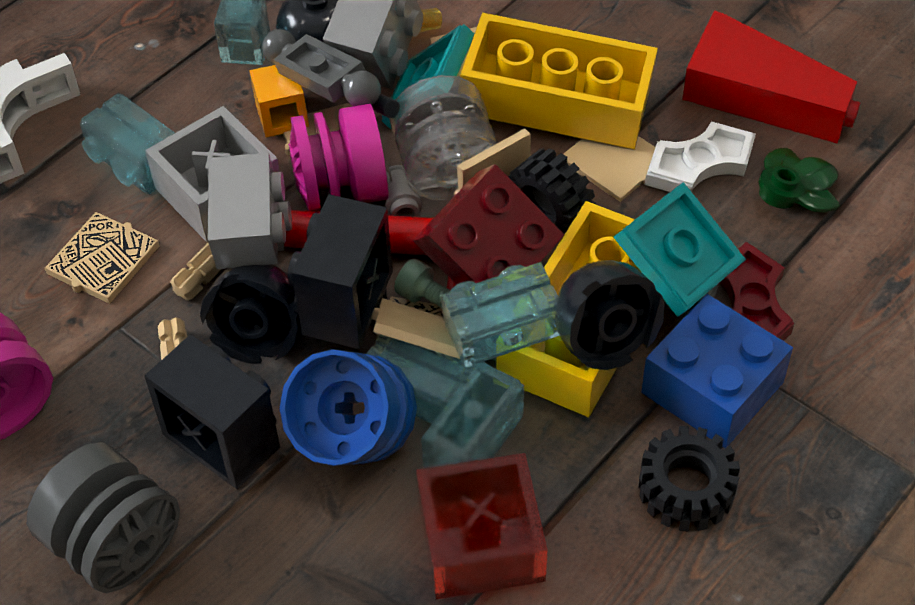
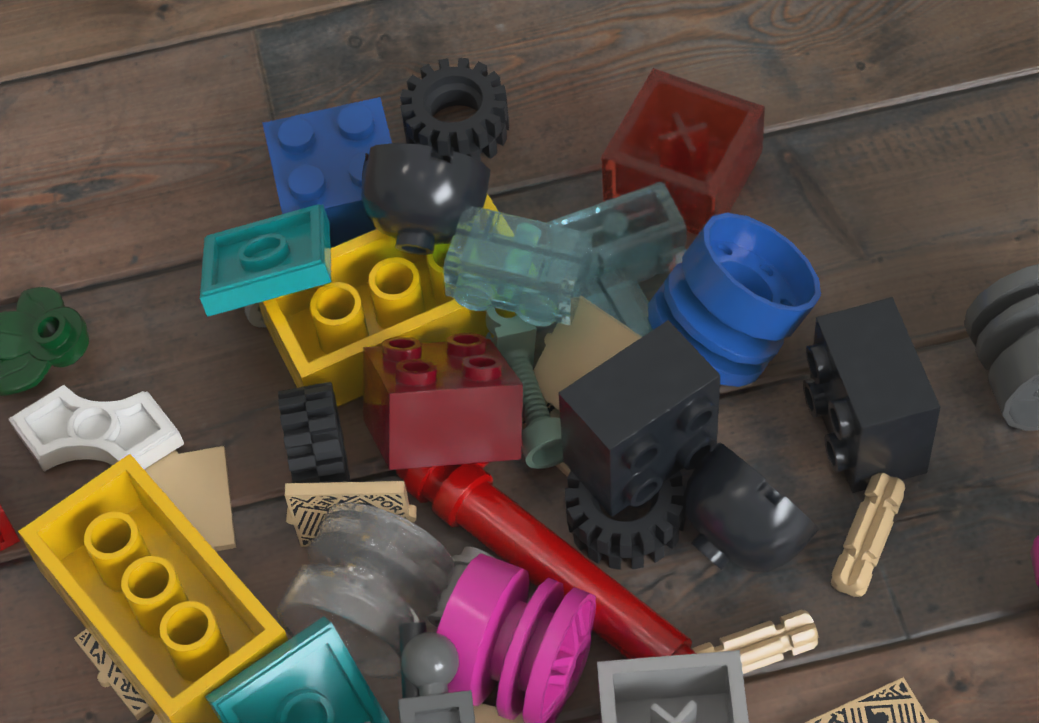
camera: 140 degrees left, 5 degrees up
(246, 211) = (698, 554): light grey brick -> none
(753, 291) = (182, 262): dark red tile -> none

